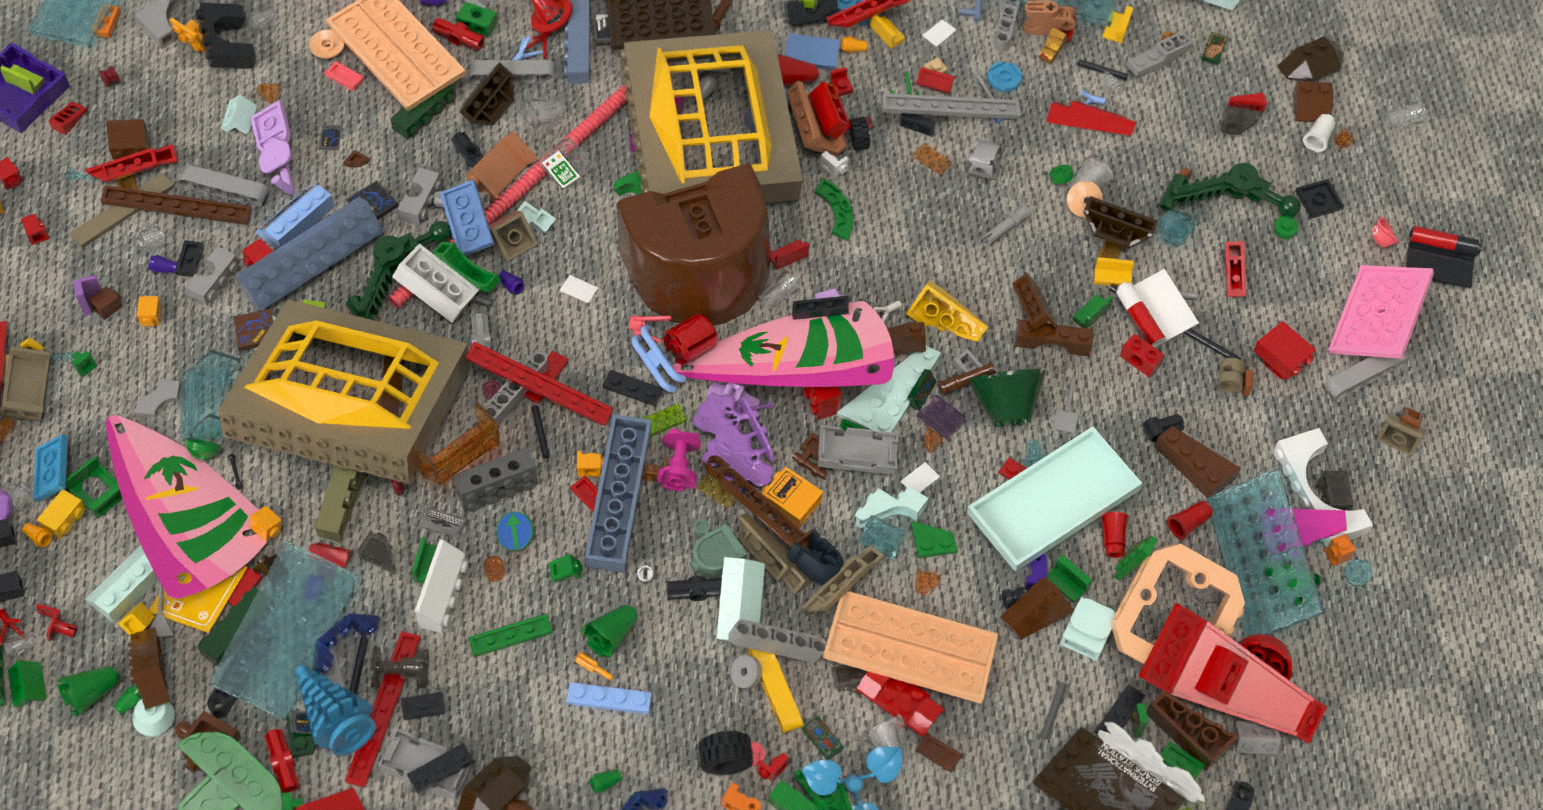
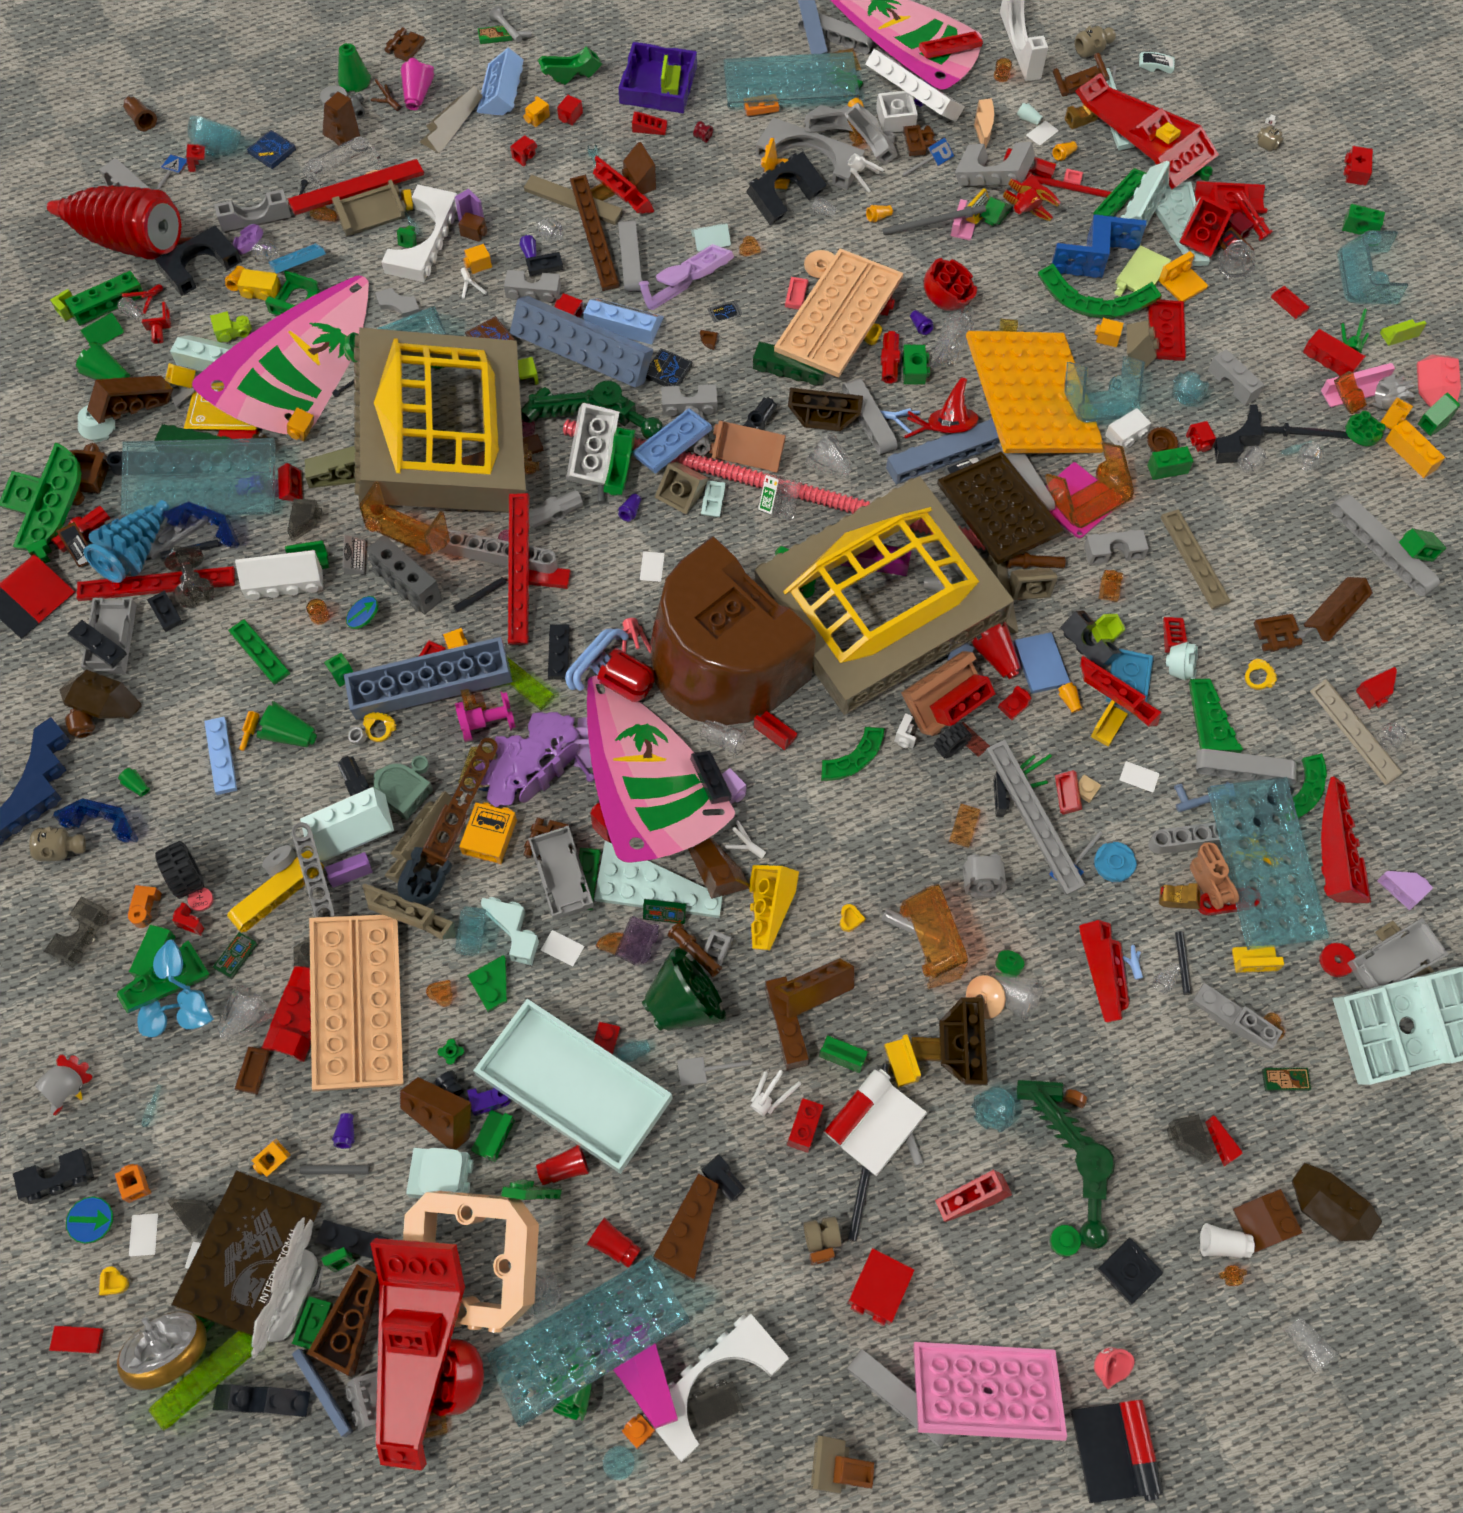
camera: 70 degrees right, 5 degrees up
(63, 322) = (417, 261): none -> white arch
(100, 561) = (228, 330): none -> lime brick
(168, 328) = (468, 280): none -> white plant
(302, 765) = (74, 543): none -> slope
(641, 544) = (370, 719): none -> yellow piece
(740, 19) = (1032, 583): none -> dark tan slope
(777, 613) = (348, 869): none -> medium lavender panel
(979, 264) = (850, 918): none -> yellow tile
(981, 595) = (444, 1052): none -> green plate
(1024, 691) = (344, 1132): none -> dark purple cone
(1028, 199) = (937, 935): none -> clear orange windscreen
(1028, 755) = (261, 1163): none -> light orange brick
(1112, 378) = (762, 1102): none -> white plant
(1240, 768) = (322, 1392): none -> sand blue tile

